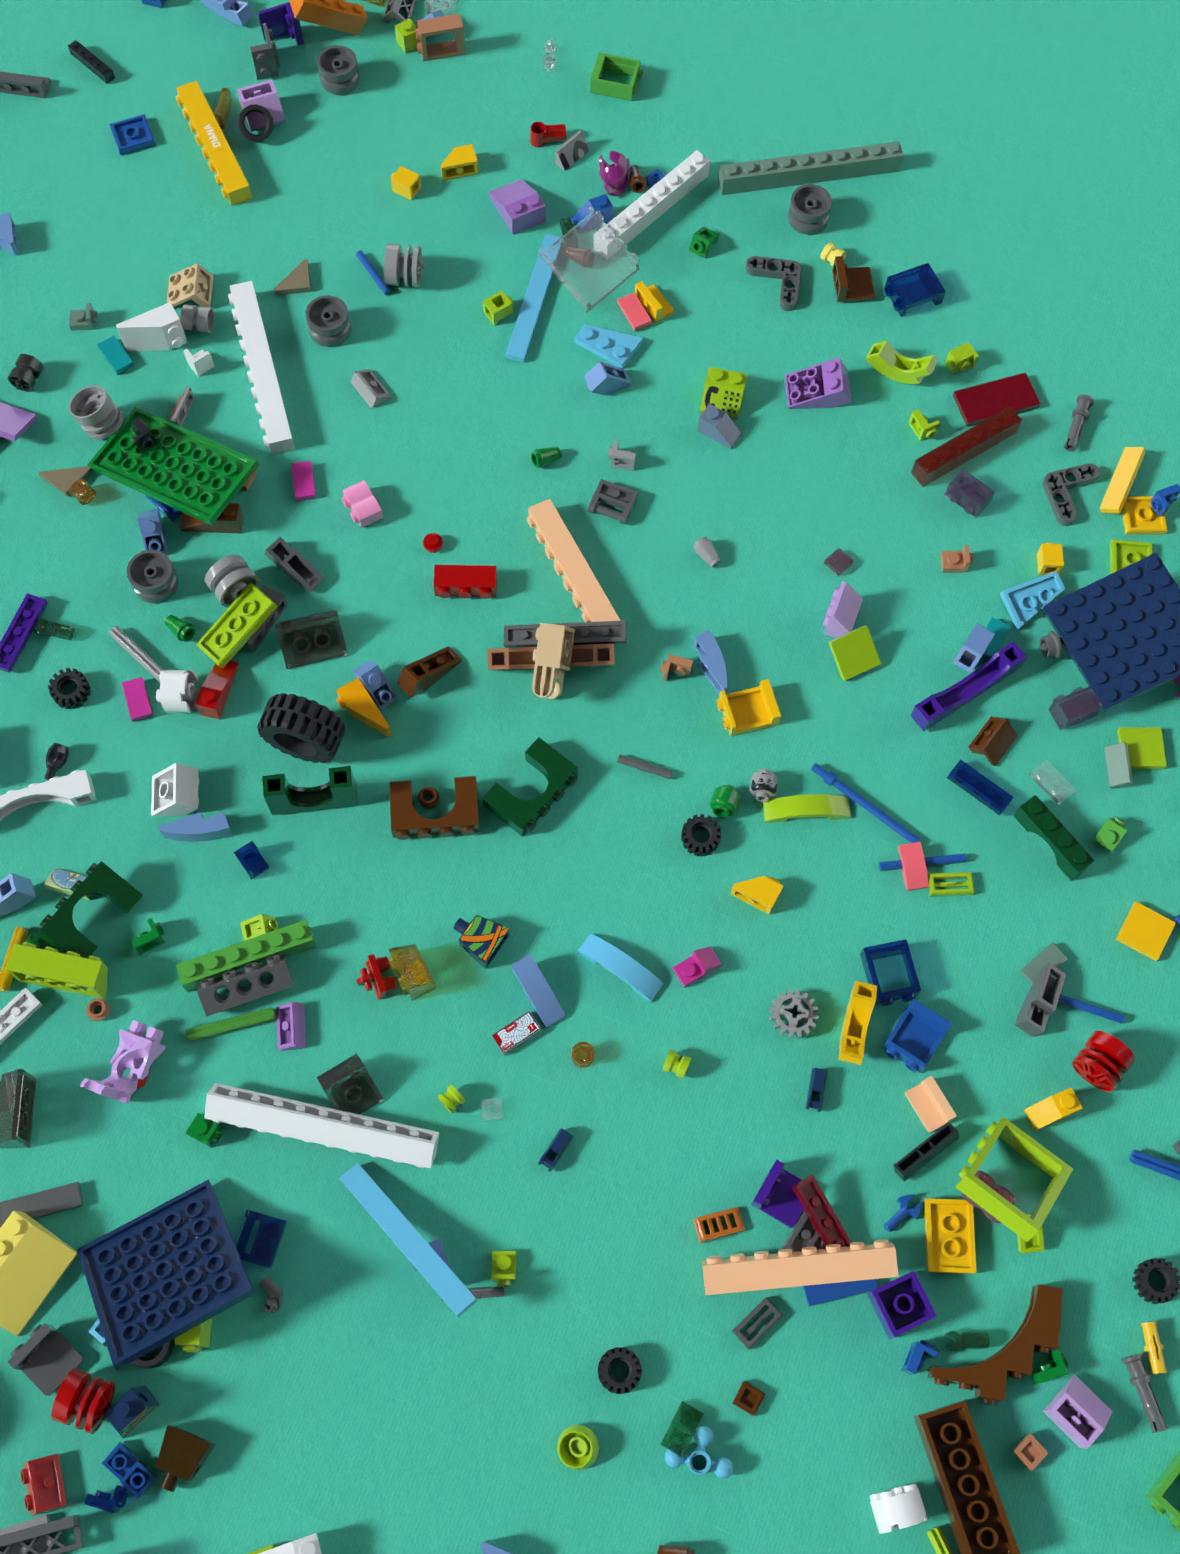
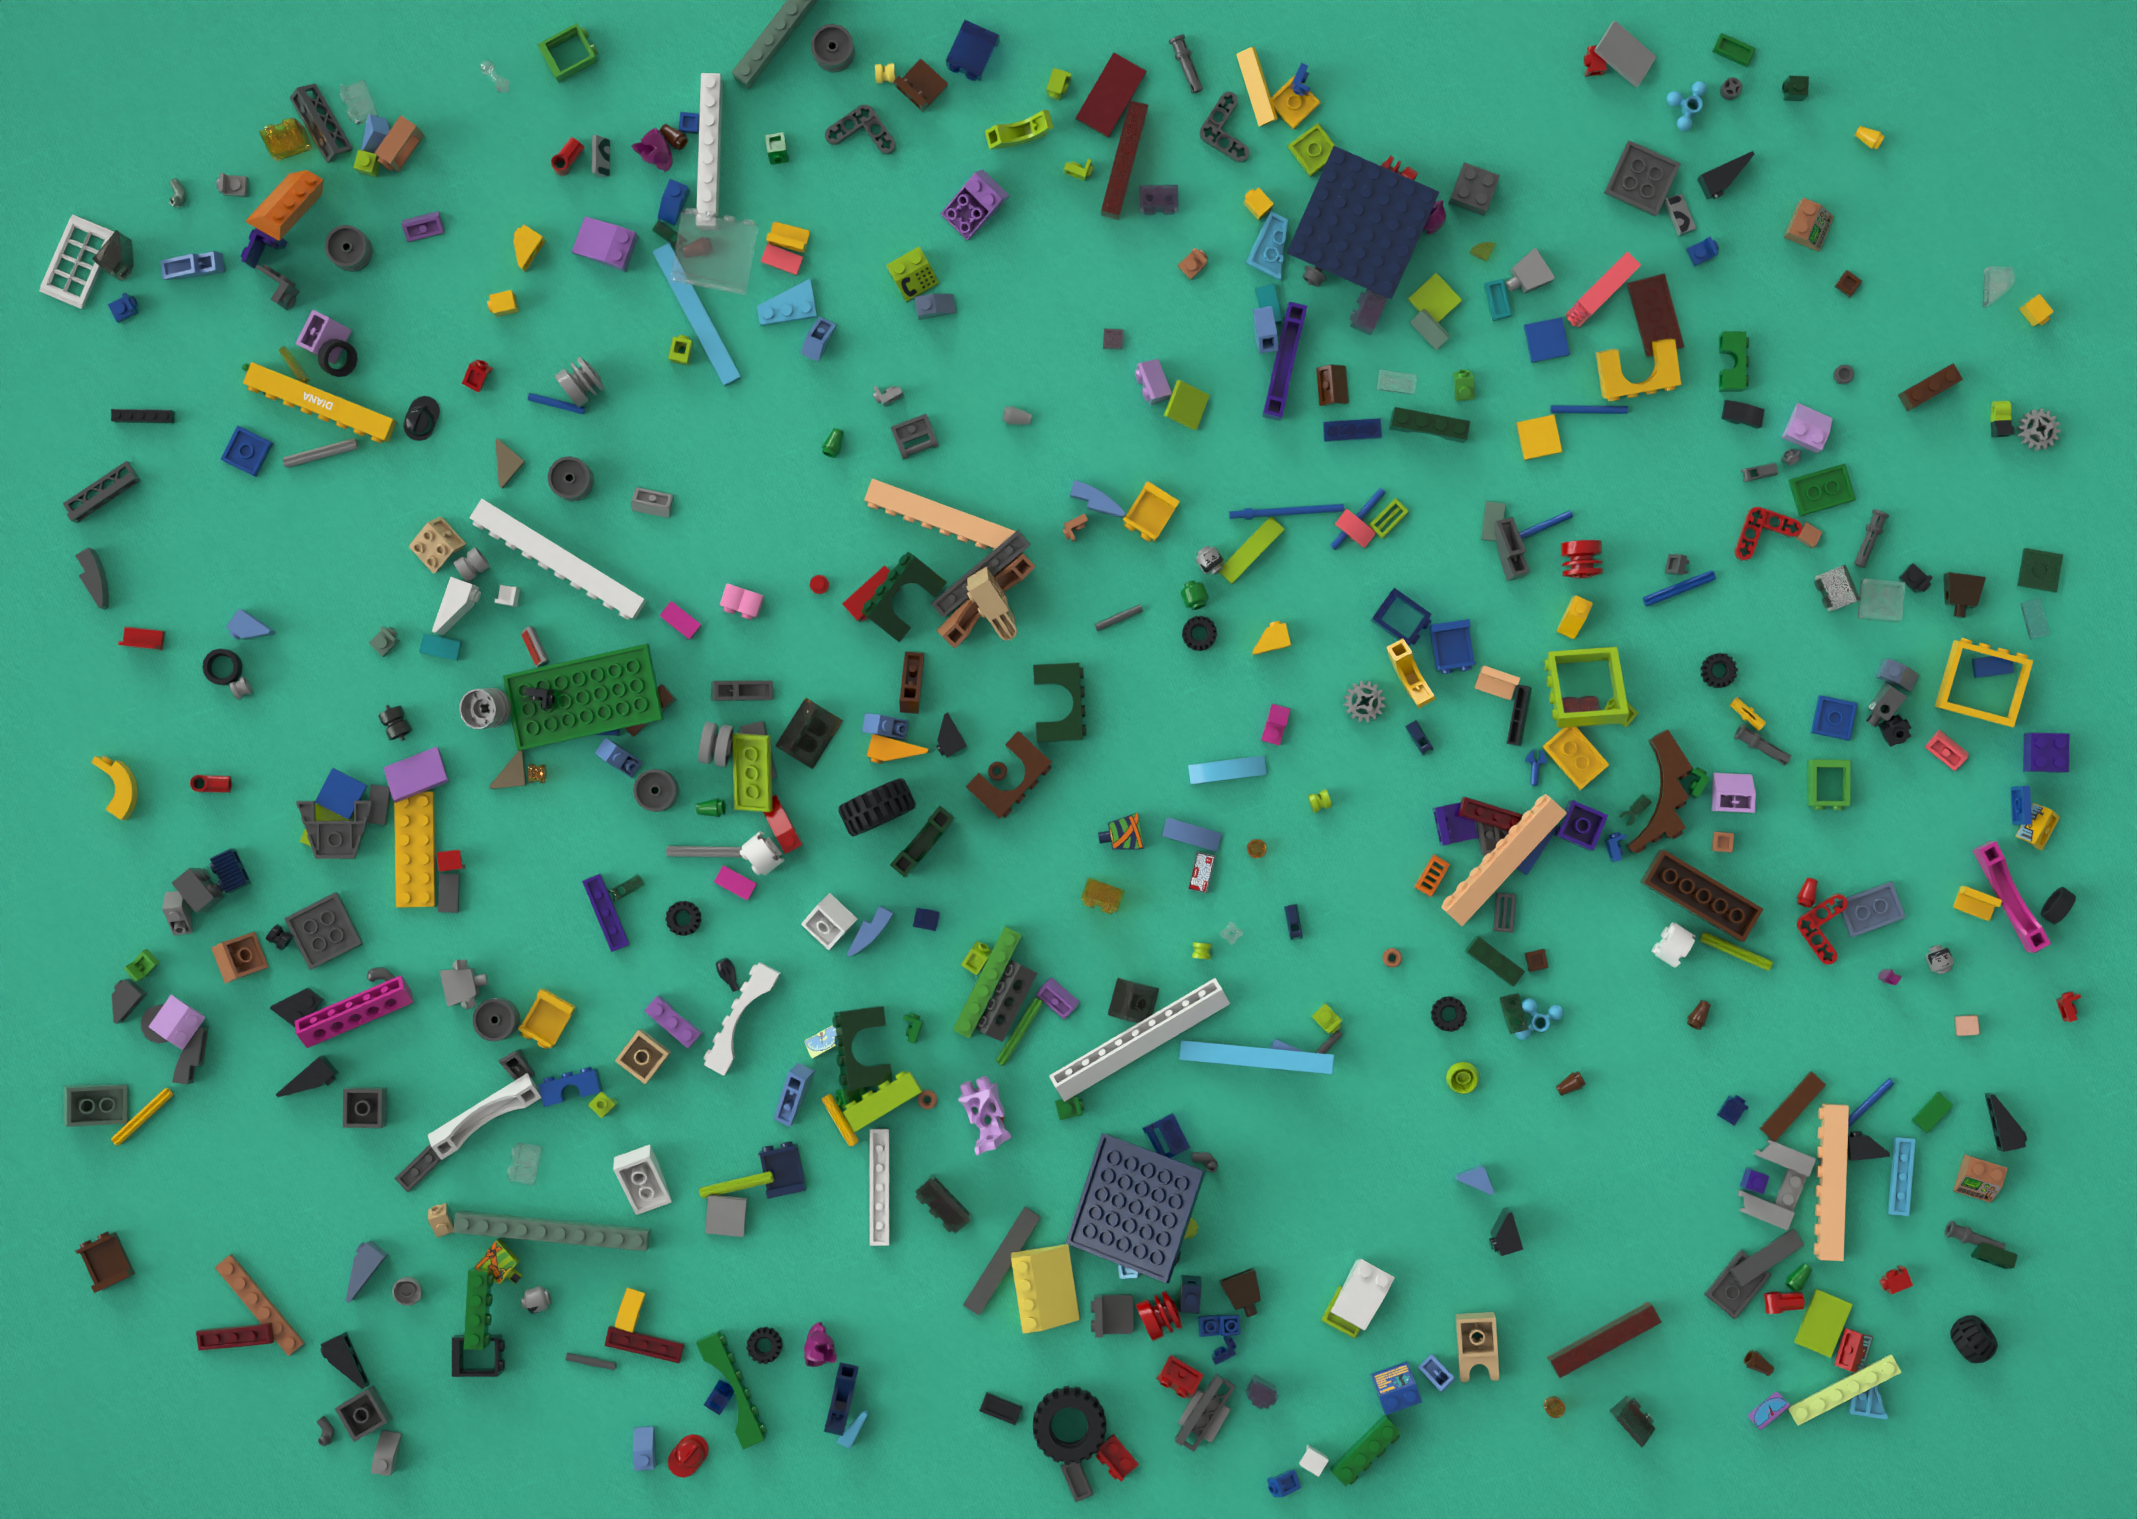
camera: 40 degrees left, 20 degrees up
(178, 173) = (320, 452): none -> light grey axle
(269, 207) = (421, 418): none -> black piece
(337, 209) = (476, 375): none -> red bracket
(375, 967) = (1089, 922): red hips -> none
(403, 101) = (422, 226): none -> medium lavender slope
(416, 737) = (949, 738): none -> black slope
(459, 588) = (880, 608): none -> dark green arch
(614, 1259) = (1398, 957): none -> nougat plate
(708, 1359) = (1495, 961): none -> dark green arch

